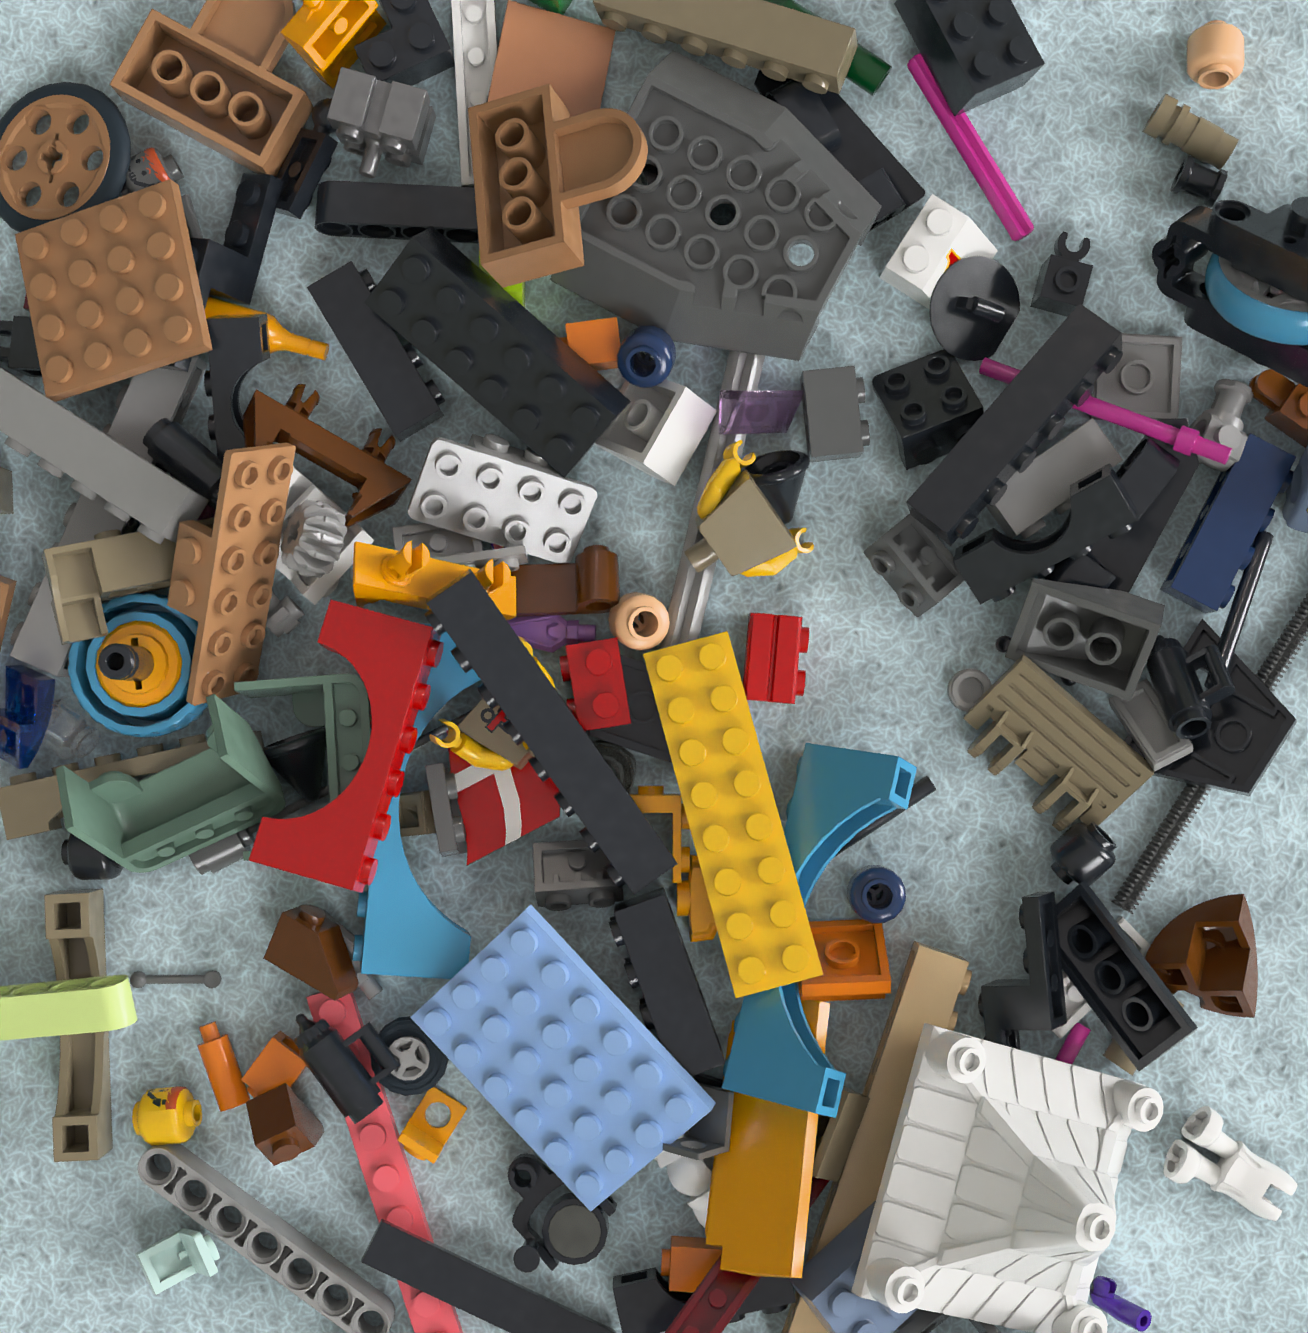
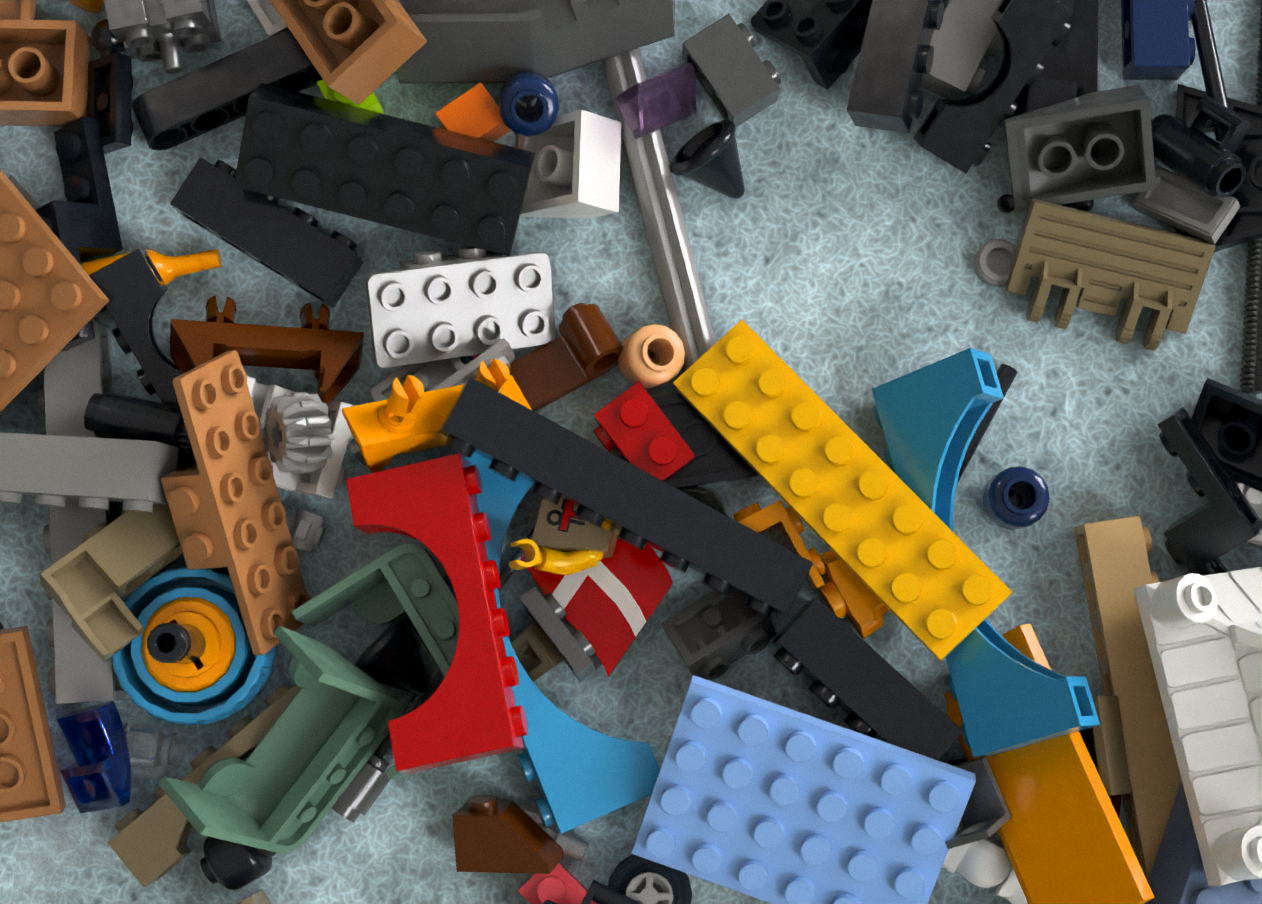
camera: 25 degrees left, 5 degrees down
(551, 631) = (576, 409): medium lavender piece -> none
(741, 524) = (701, 211): dark tan torso -> none
(773, 658) = (797, 325): red brick -> none
(851, 962) = (1034, 572): orange bracket -> none
(914, 565) = (883, 171): dark grey bracket -> none
(1082, 853) = (1189, 359): black head -> none

